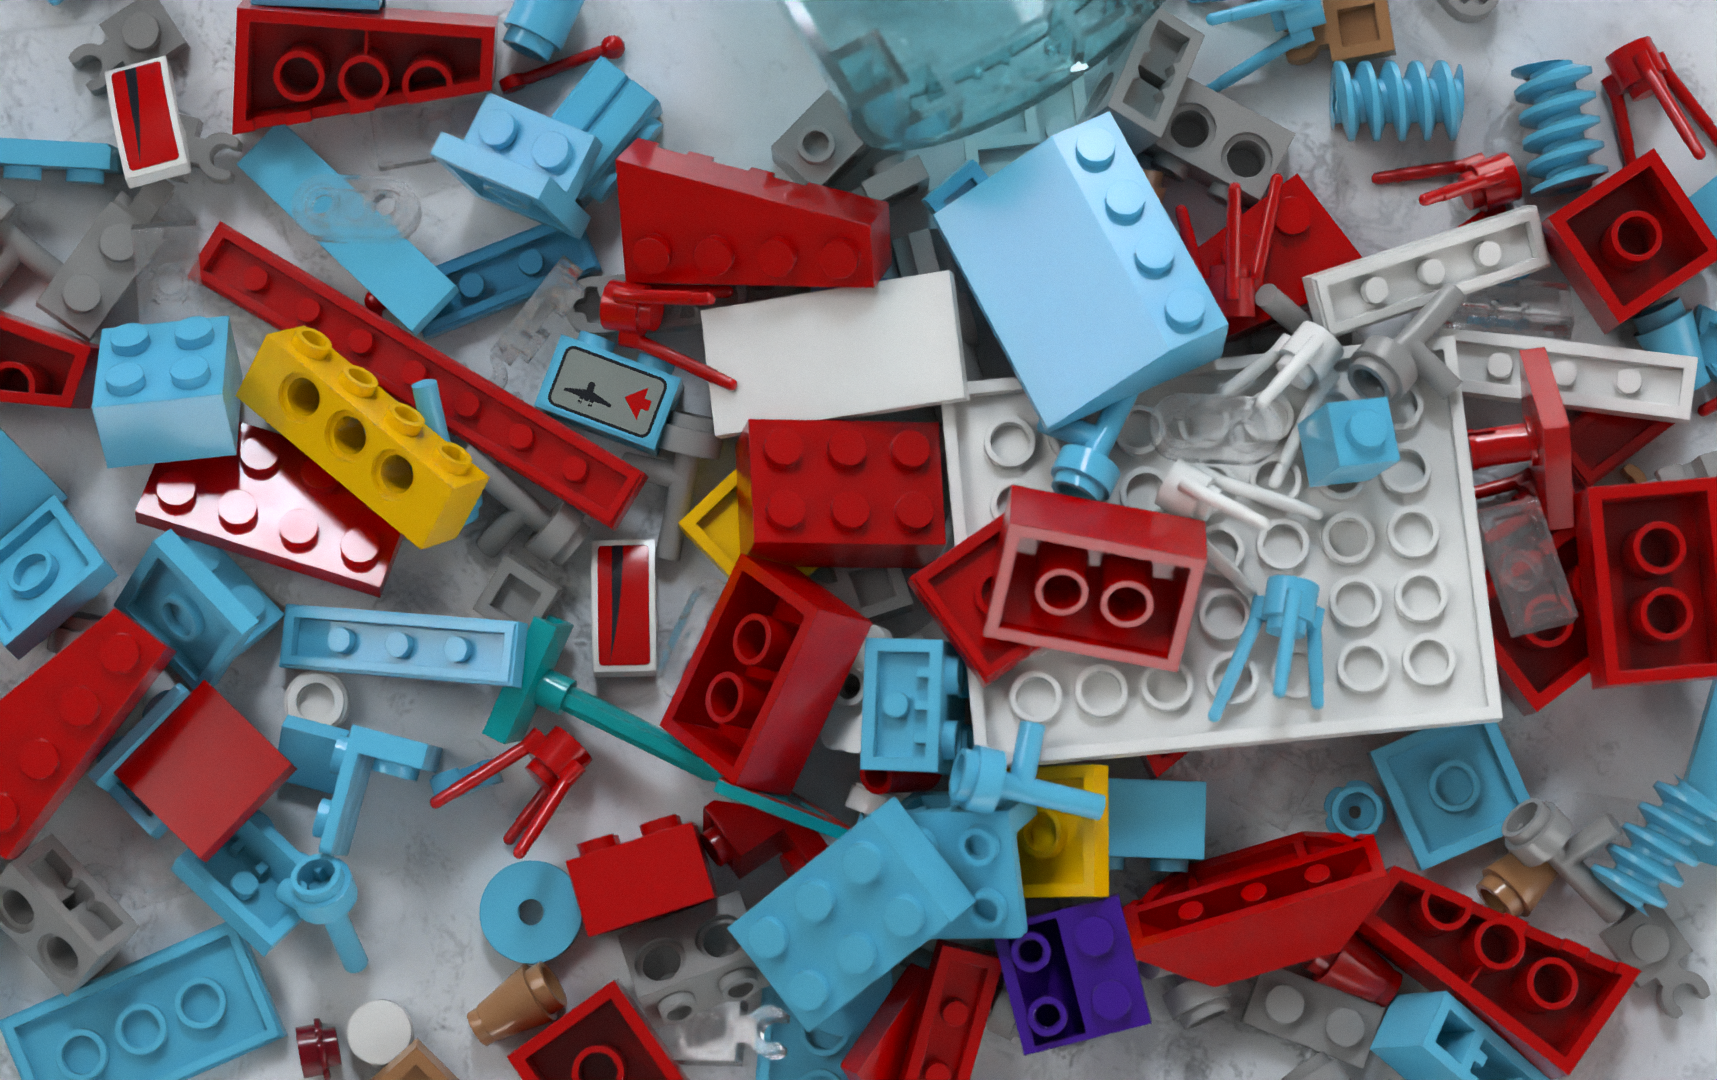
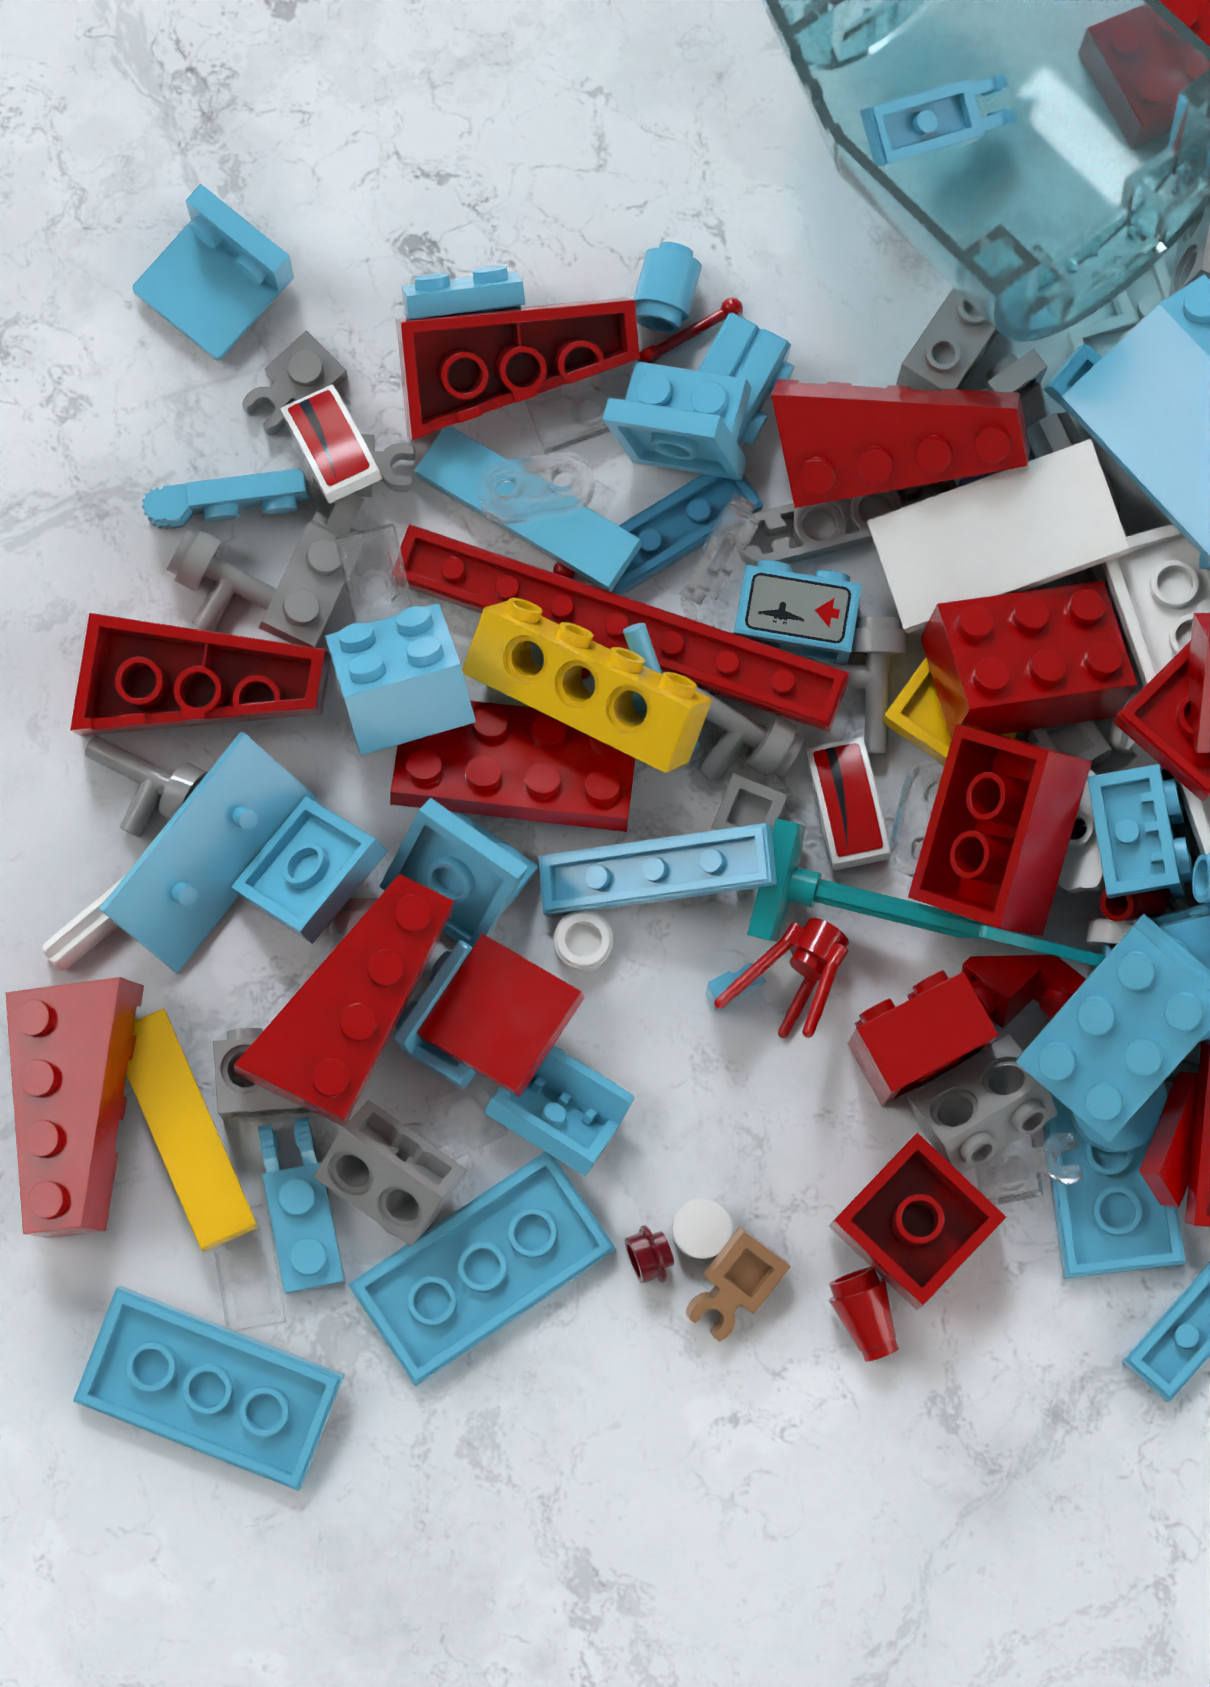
camera: 15 degrees left, 5 degrees down
(310, 750) = (598, 980): medium azure tile -> none
(324, 893) = (636, 1103): medium azure piece -> none
(353, 762) = (675, 971): medium azure bracket -> none
(502, 917) = (818, 1066): medium azure piece -> none
(518, 1004) = (825, 1179): medium nougat cone -> none
(640, 307) = (809, 528): red plant -> none

